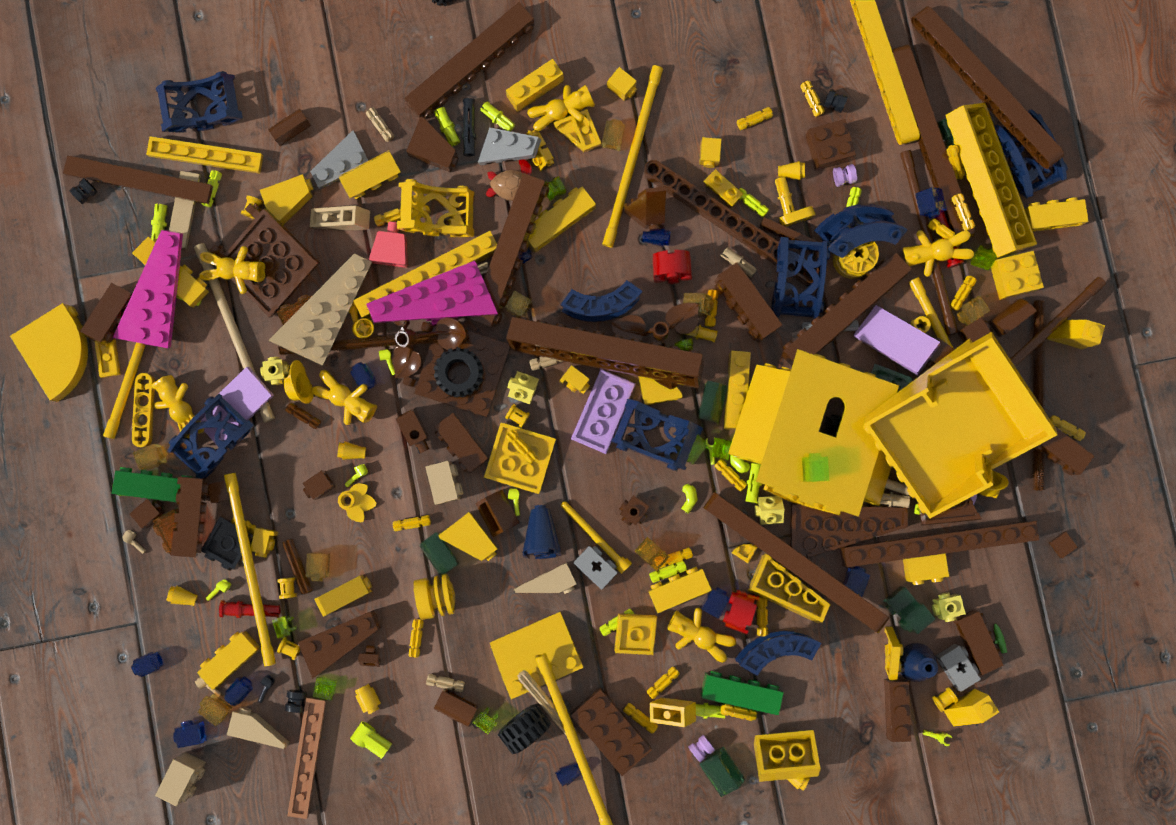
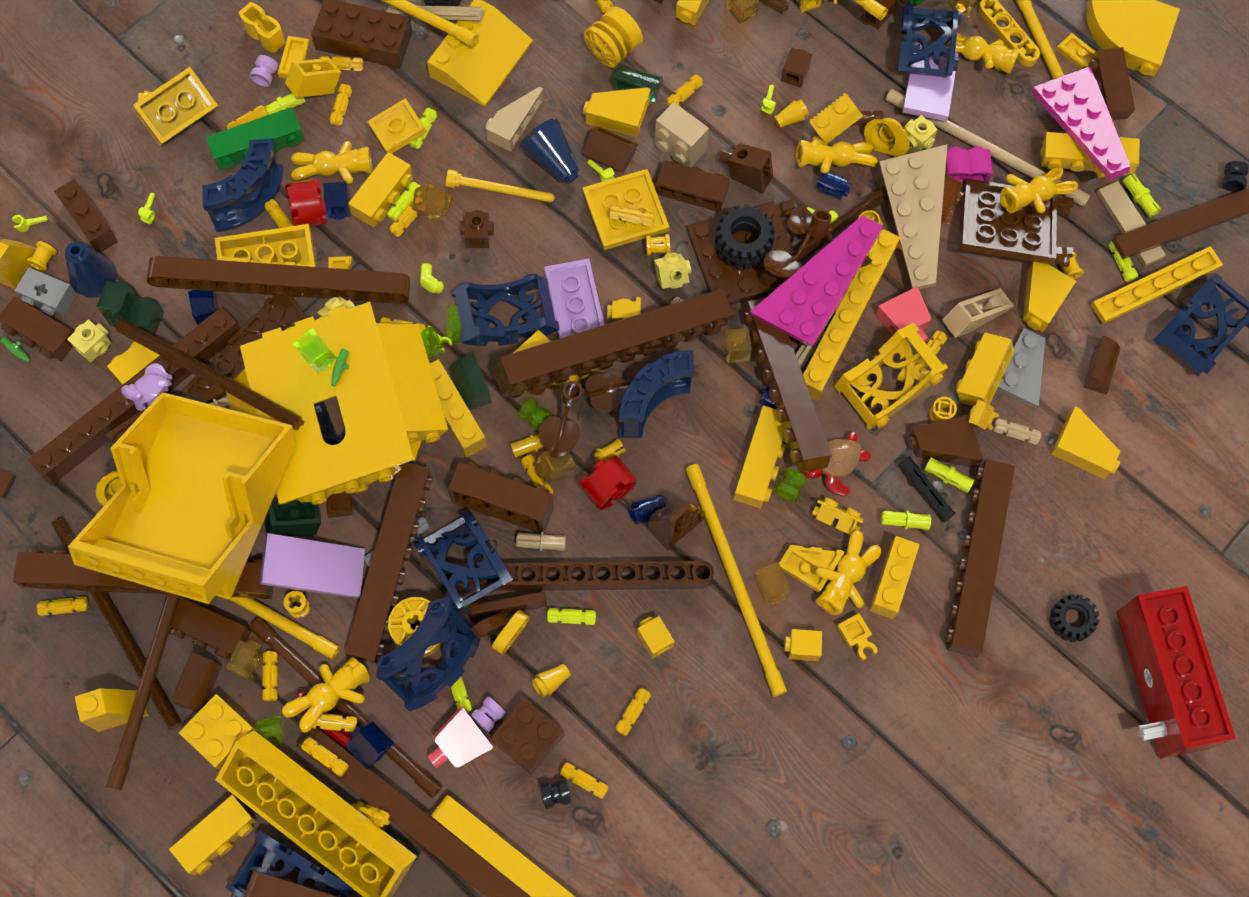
camera: 145 degrees right, 15 degrees down
(259, 326) = (969, 164): none -> dark pink brick
(325, 421) = (836, 118): none -> yellow brick
(345, 84) = (1086, 446): none -> yellow slope
(359, 502) = (748, 79): yellow plate -> none
(398, 144) = (982, 415): none -> yellow plate
(421, 171) = (937, 414): none -> yellow wheel
(508, 145) = (871, 493): light grey wing -> none
(584, 70) = (856, 633): none -> yellow plate
(601, 577) = (489, 157): light grey brick -> none
(654, 291) = (609, 451): none -> yellow pin
(671, 747) = (295, 50): none -> yellow tile
(682, 788) = (262, 27): none -> yellow brick
(722, 772) = (229, 64): clear green brick -> none
(723, 188) = (613, 605): yellow hinge -> none
(784, 195) = (540, 646): yellow axle -> none
(804, 448) = (339, 367): none -> bright green helmet
(810, 225) = (489, 625): none -> reddish brown beam
(853, 687) = (145, 212): none -> neon yellow hand
(873, 169) = (459, 741): none -> torso
(892, 654) = (122, 263): yellow wing -> none
(894, 522) = (209, 374): none -> reddish brown axle
(933, 530) = (148, 386): none -> lavender hair

